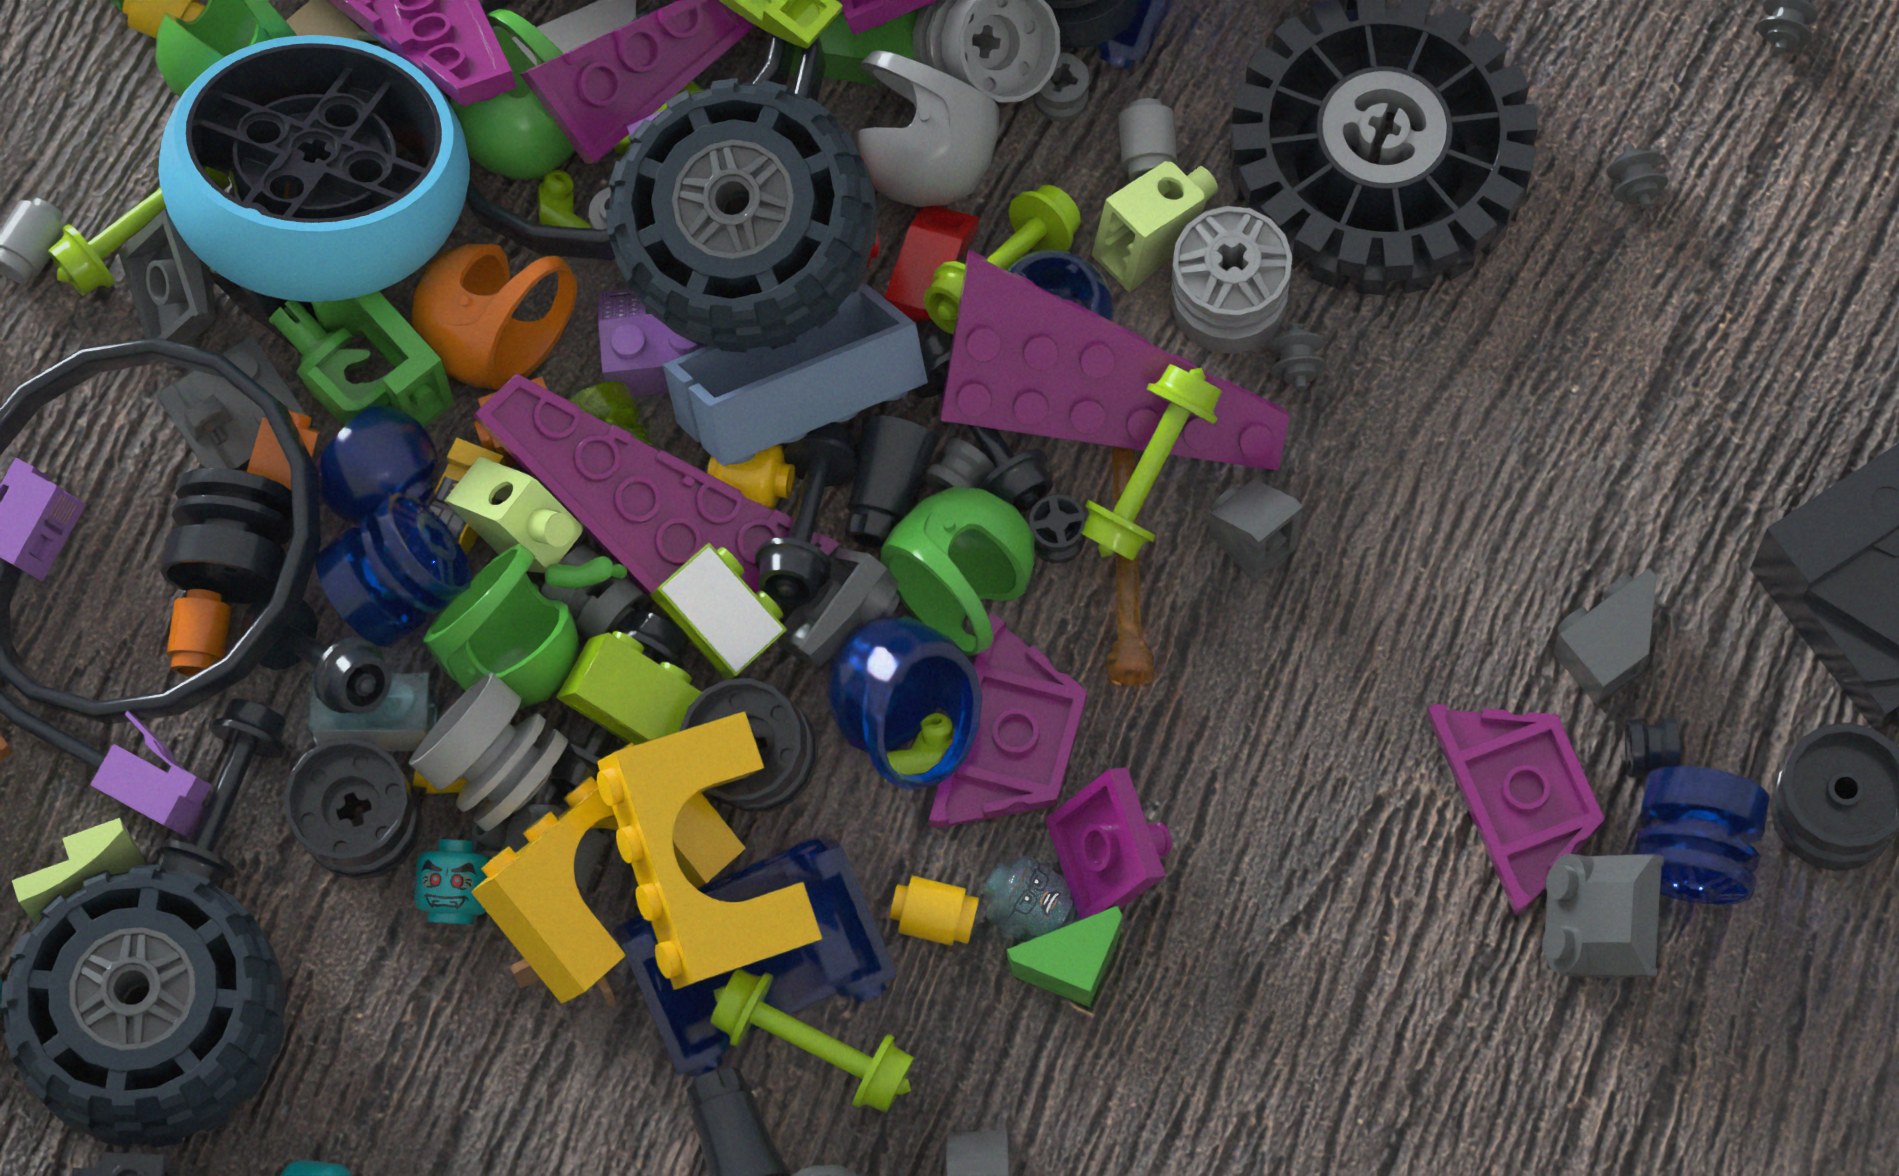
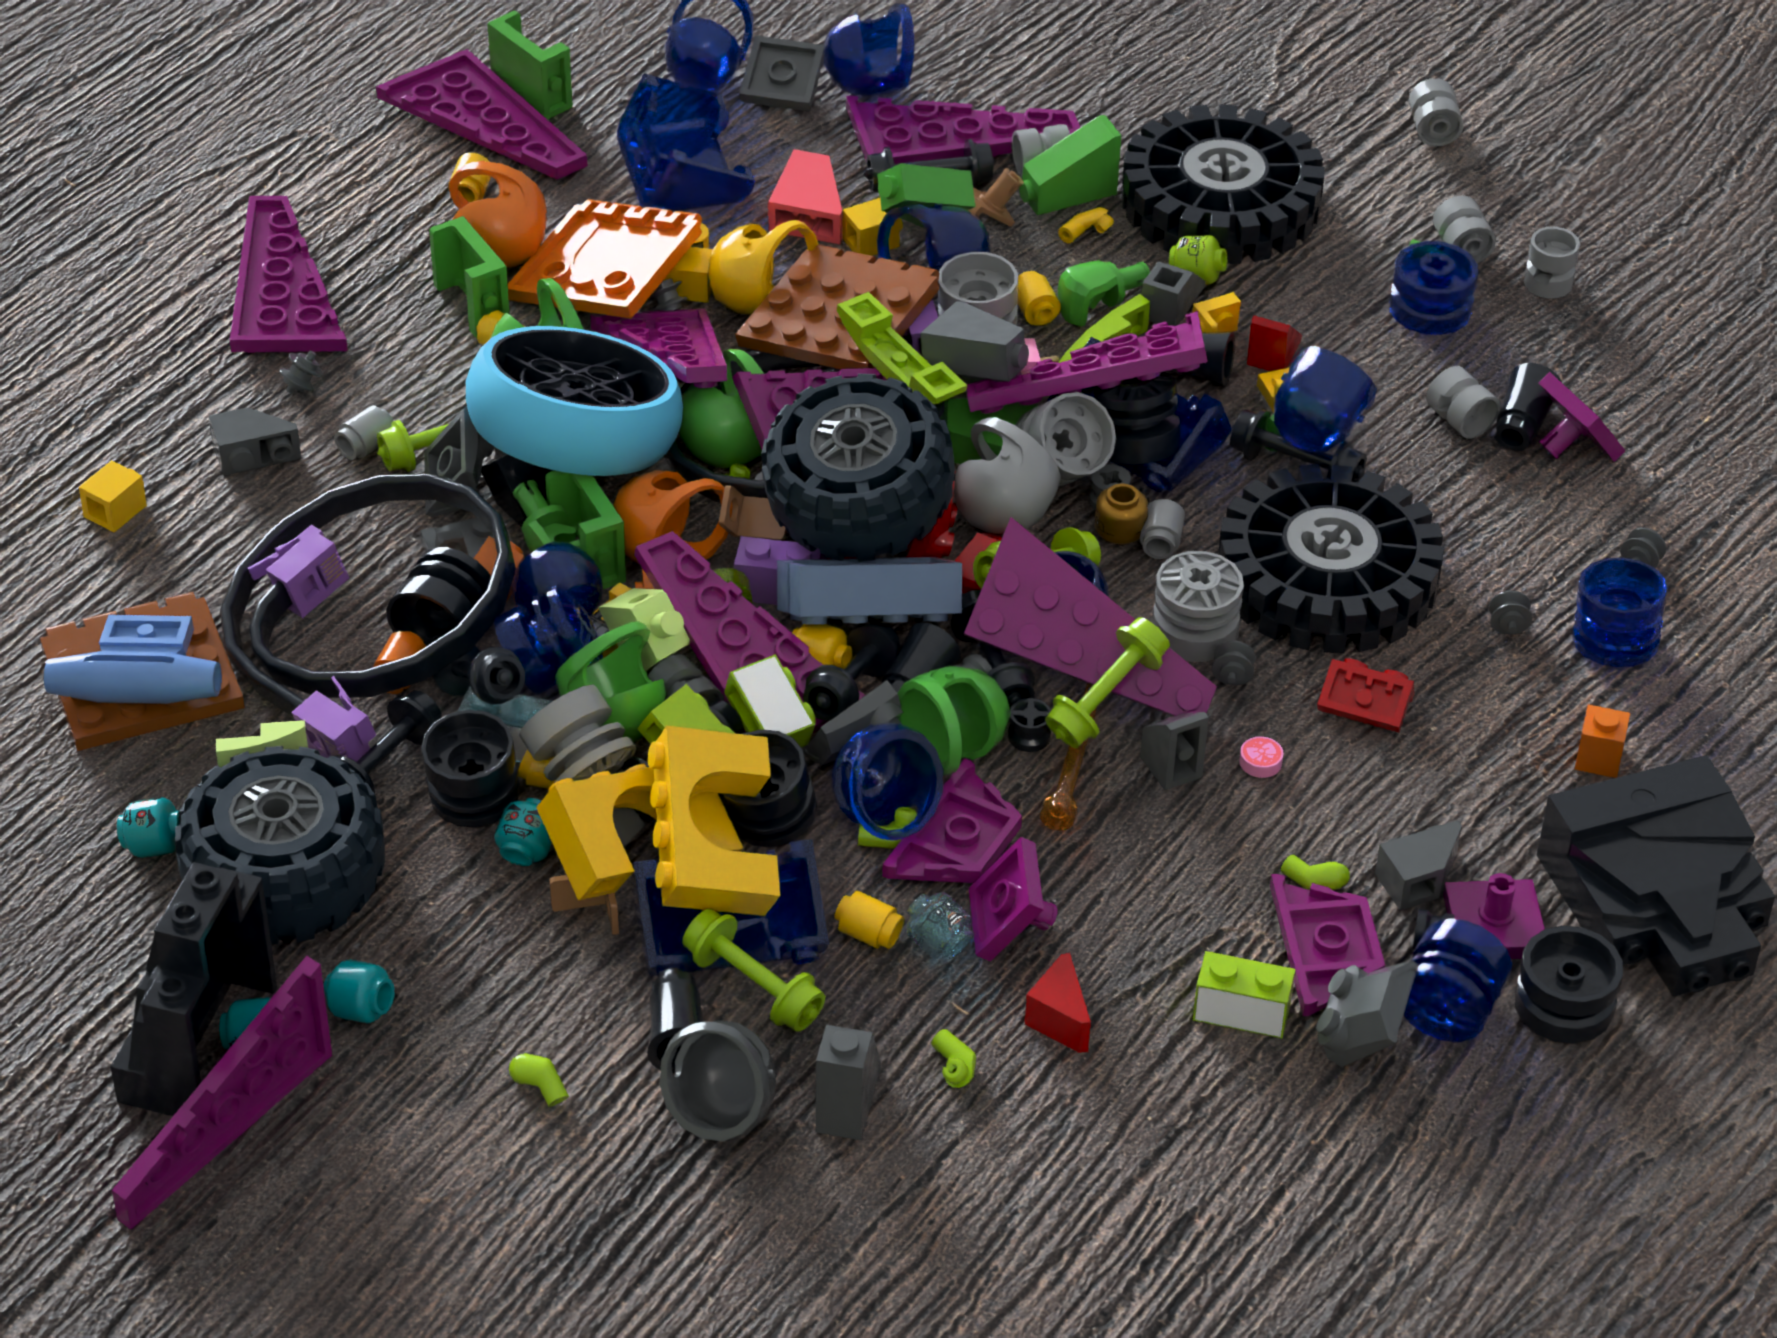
camera: 10 degrees right, 25 degrees down
(583, 575) = (681, 663): bright green piece -> none
(597, 284) = (749, 516): none -> medium nougat bracket
(1069, 958) = (961, 965): bright green slope -> none
(1090, 138) = (1120, 513): none -> pearl gold head
(1106, 1102) = (960, 1059): none -> lime arm
(1147, 219) = (1137, 560): yellowish green torso -> none
(1211, 989) = (1058, 1006): none -> red slope
(1367, 501) = (1261, 757): none -> tile
(1439, 913) = (1243, 994): none -> brick
(1481, 368) = (1366, 694): none -> red bracket
(1484, 688) = (1325, 874): none -> lime arm
(1722, 695) = (1500, 906): none -> magenta tile
(1787, 128) = (1619, 612): none -> clear blue wheel
(1801, 373) = (1602, 741): none -> orange brick

